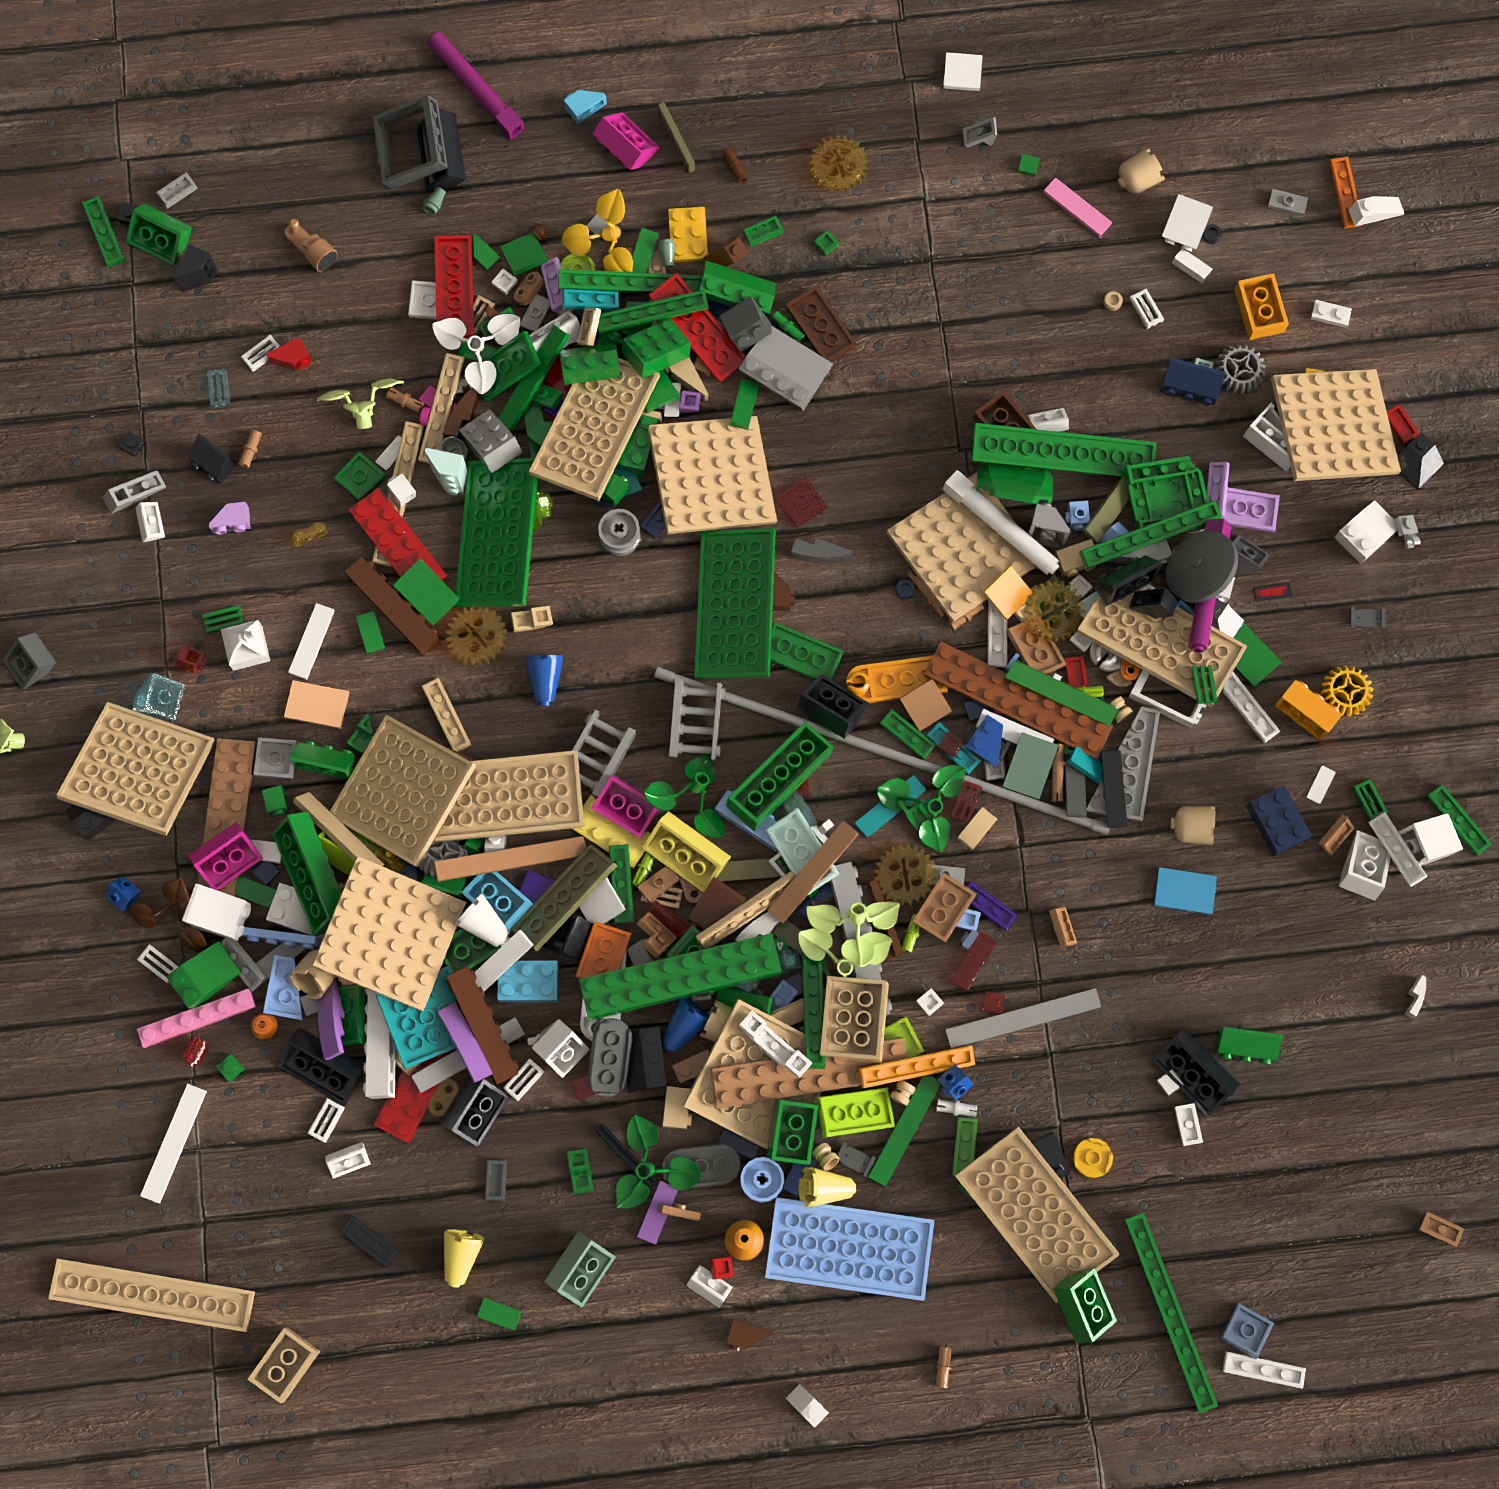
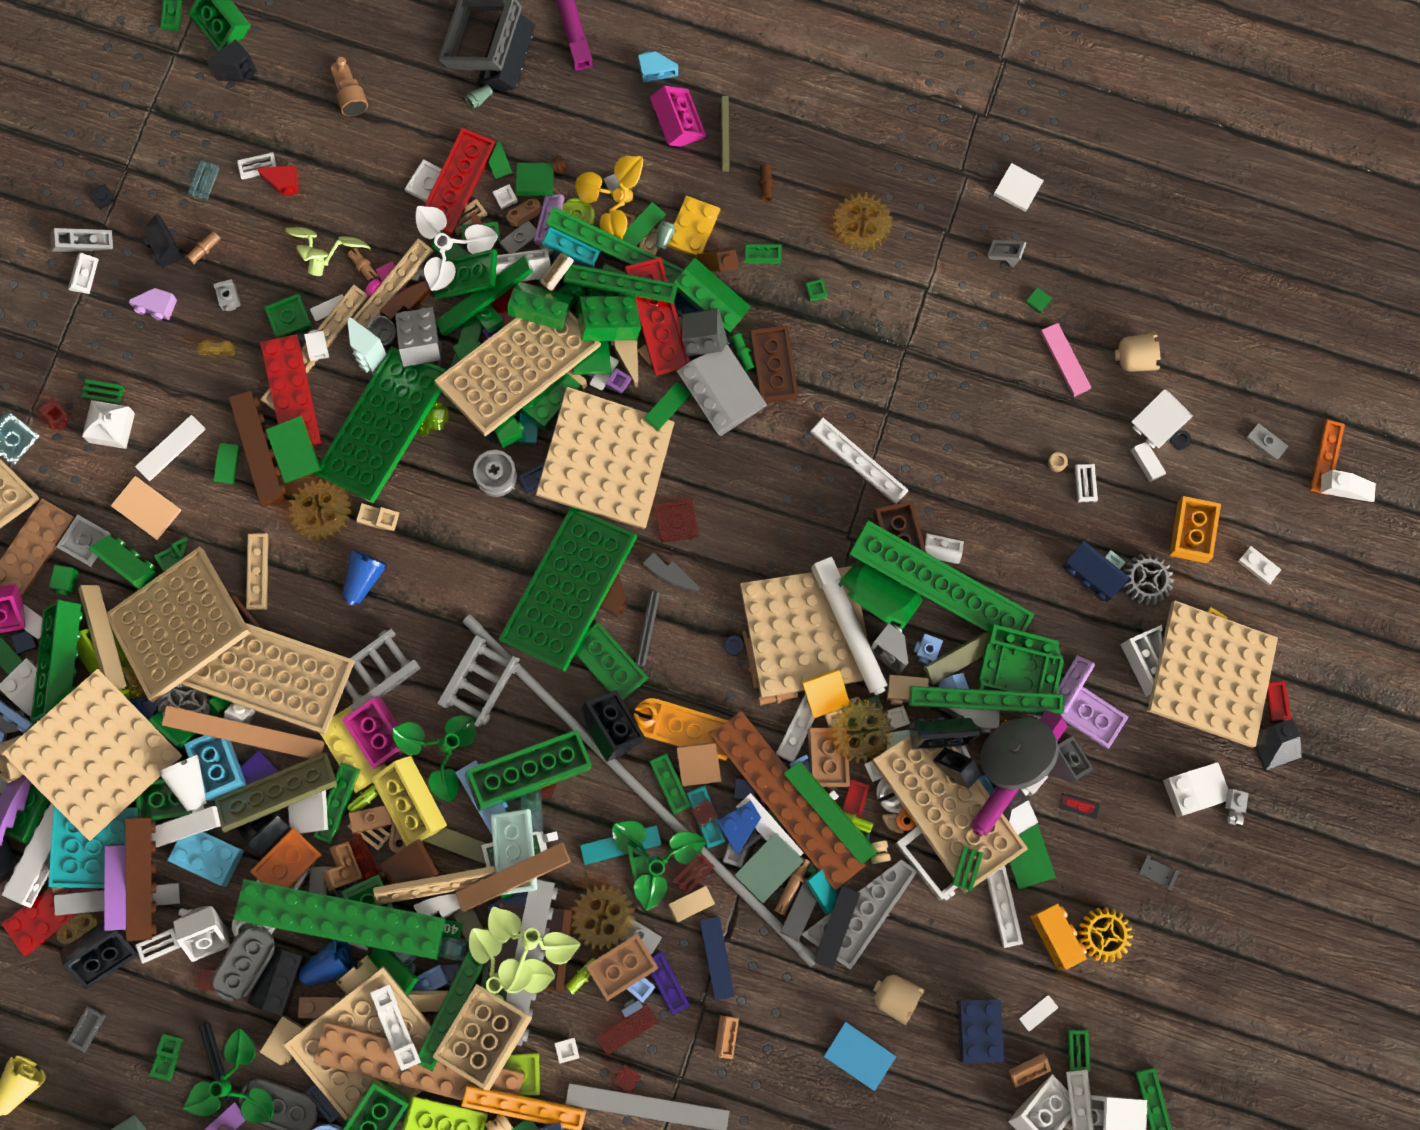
camera: 20 degrees right, 0 degrees up
(291, 475) = (227, 288): none -> light grey brick
(821, 608) = (647, 628): none -> dark grey axle
(937, 378) = (859, 461): none -> white tile
(1021, 864) = (717, 958): none -> dark blue tile

